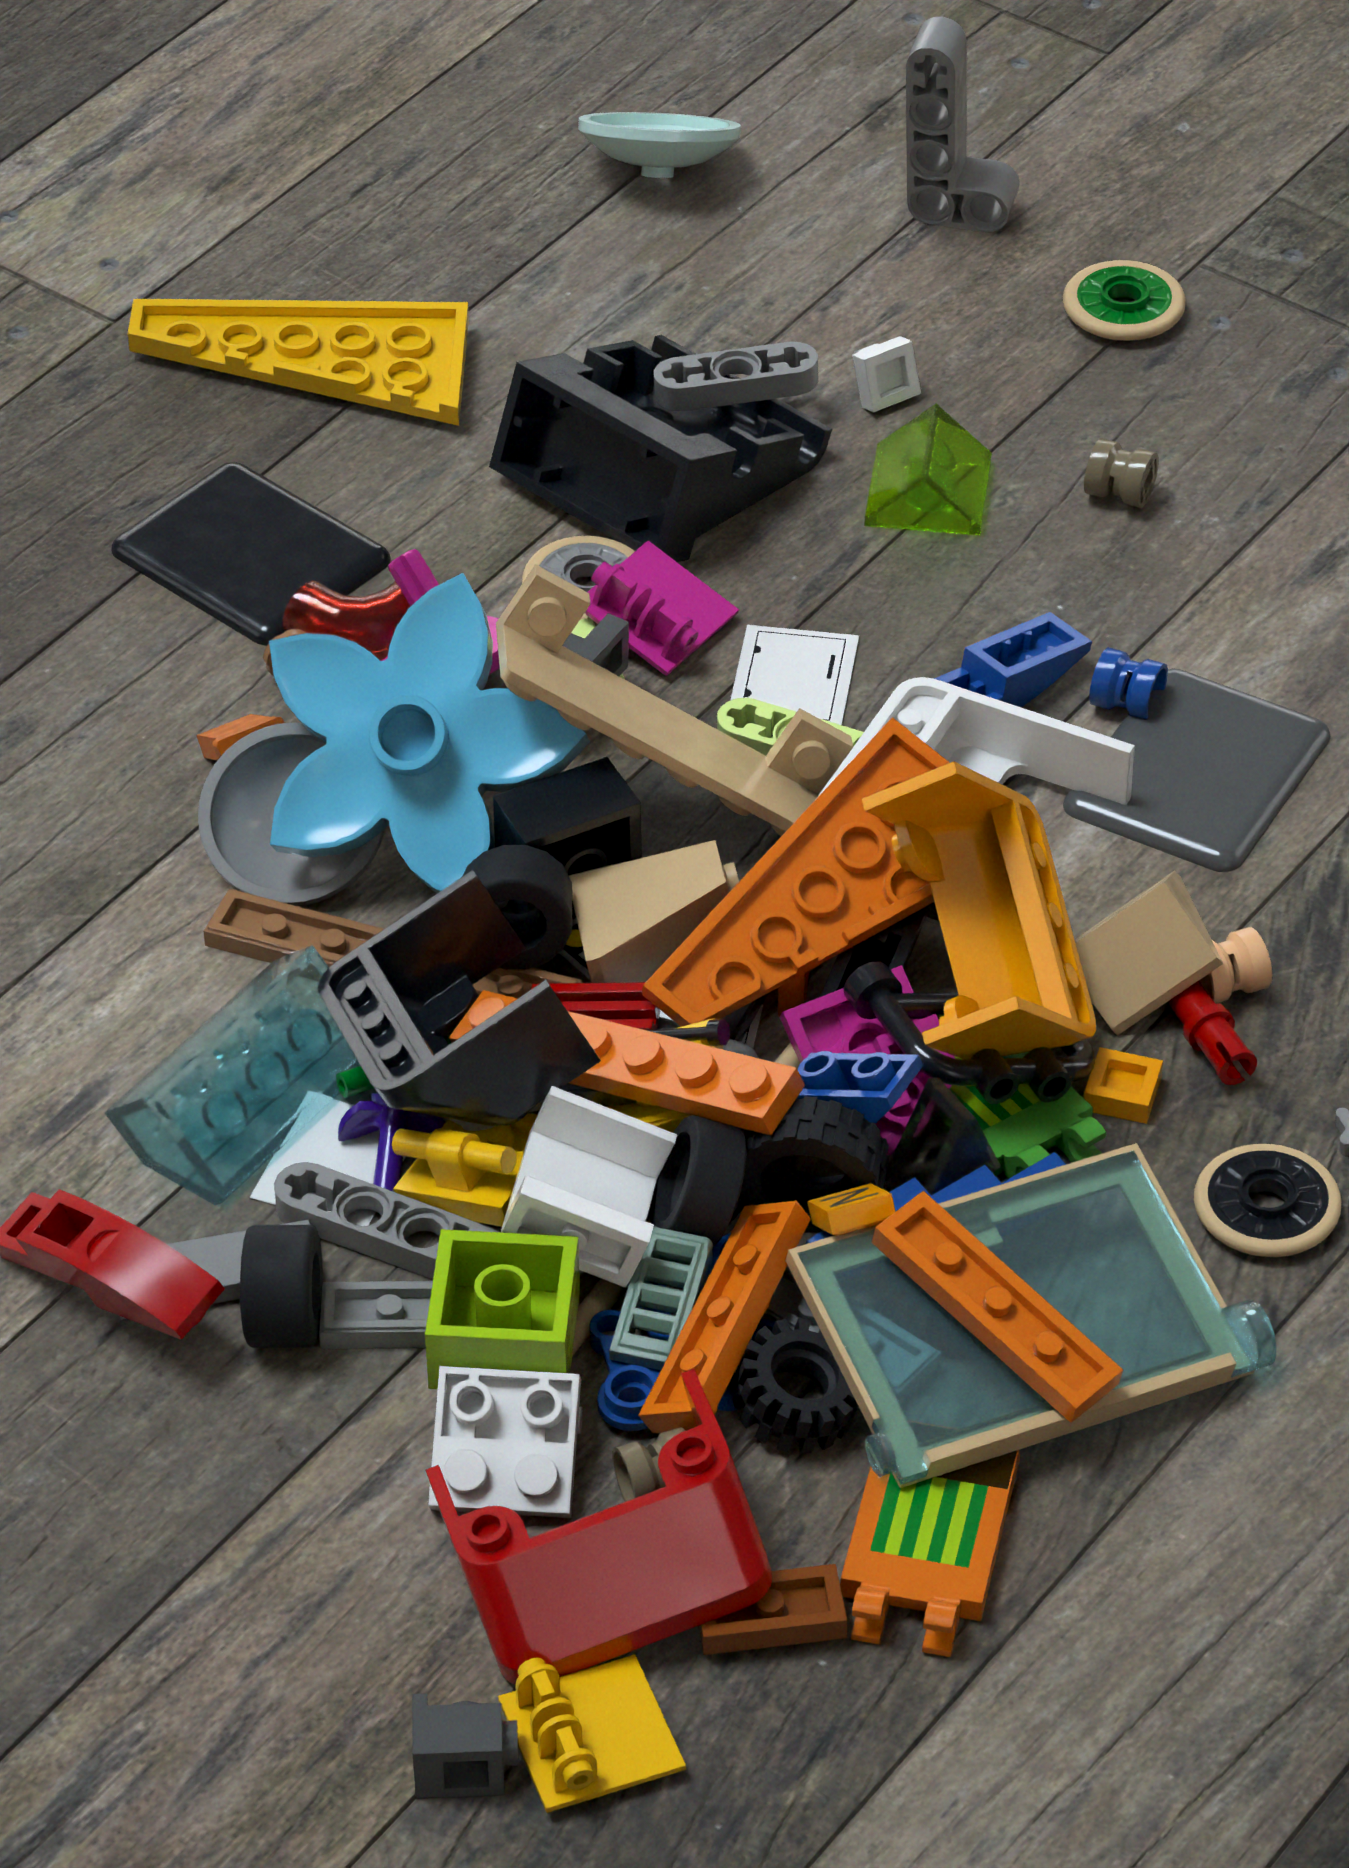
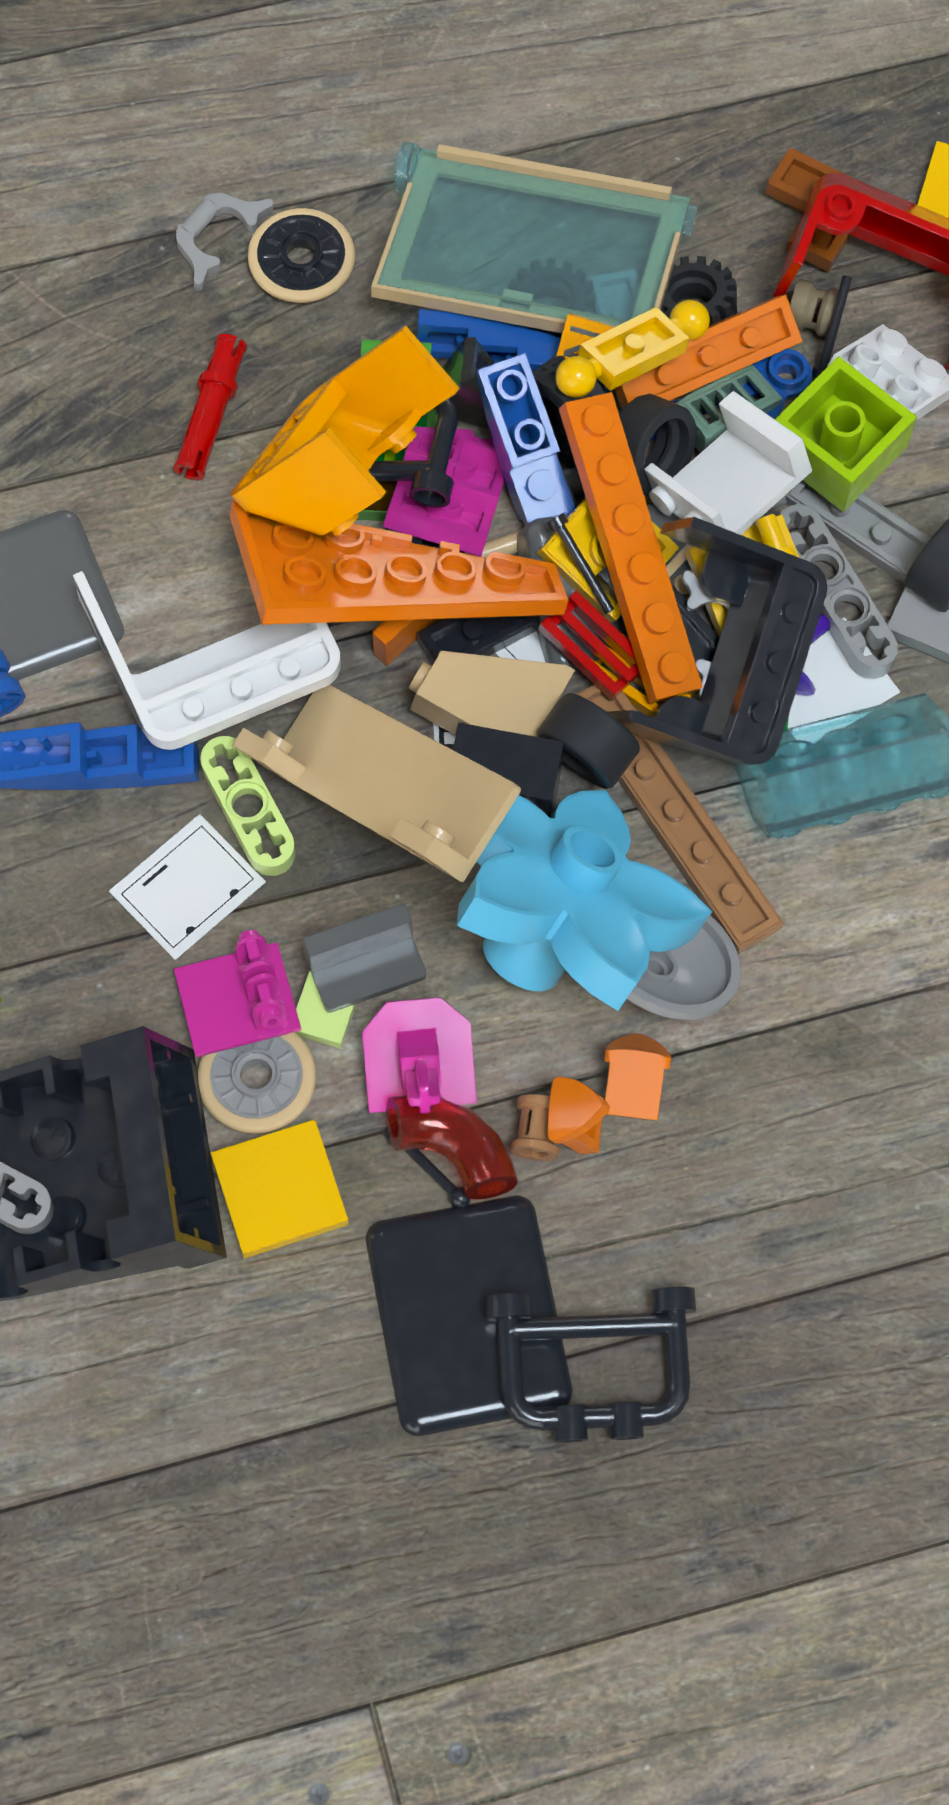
camera: 145 degrees left, 25 degrees up
(71, 622) = (573, 1421): none -> black bar
(256, 686) = (575, 1115): none -> orange tile
(356, 351) = (224, 1487): yellow wing -> none
(489, 530) = (279, 1189): none -> yellow tile
(598, 1431) = (833, 326): none -> black piece
(786, 1196) = (632, 348): none -> yellow plate
(928, 1549) = (712, 168): tile -> none
(997, 1306) = (561, 229): orange plate -> none
(1123, 1085) = (296, 384): light orange tile -> none
(1145, 953) = (205, 450): tan slope -> none
(1244, 966) = (157, 414): light nougat wheel -> none

